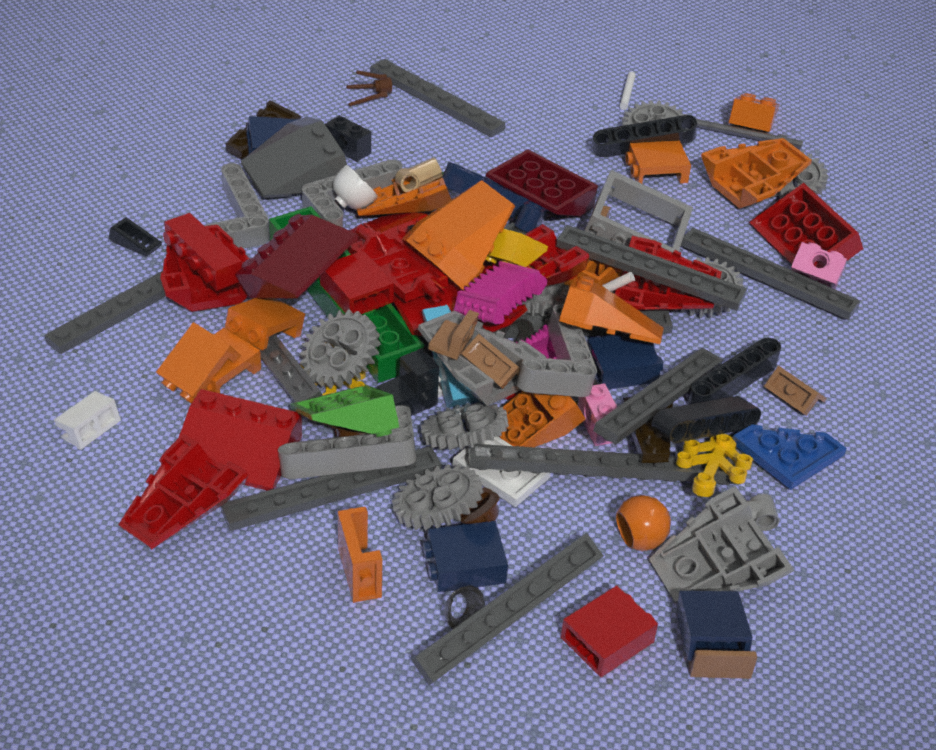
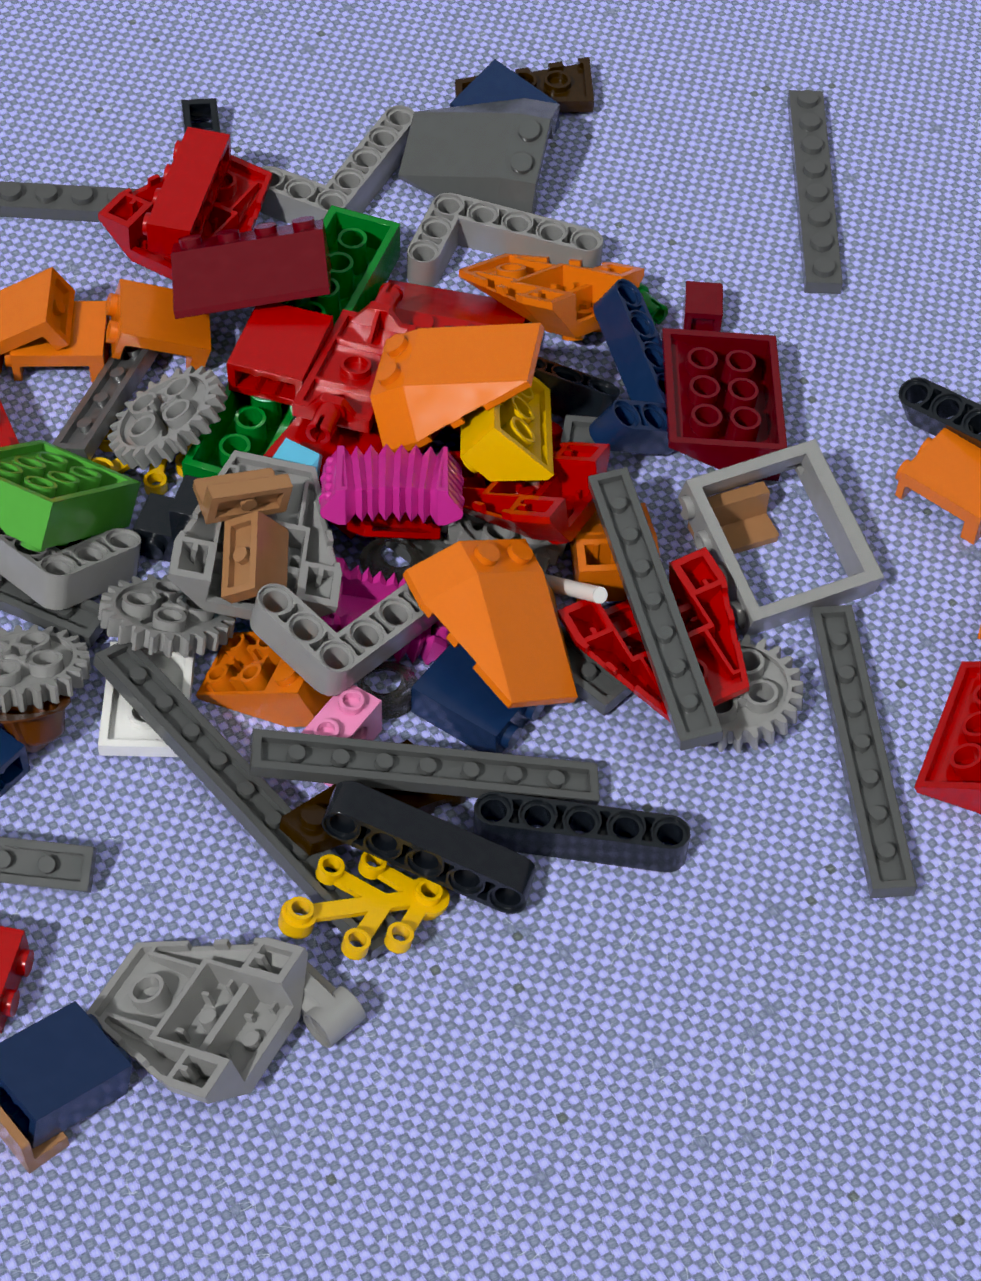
camera: 50 degrees right, 10 degrees up
(351, 137) = (603, 169): black brick -> none
(352, 190) = (482, 235): white cylinder -> none
(382, 85) = (759, 124): reddish brown plant -> none
(421, 174) = (580, 273): tan piece -> none
(474, 161) = (702, 306): none -> dark red panel
(643, 522) = (171, 894): orange helmet -> none
(789, 454) = (490, 982): blue plate -> none
(793, 390) = (632, 917): medium nougat panel -> none
(827, 275) = (913, 775): bright pink brick -> none

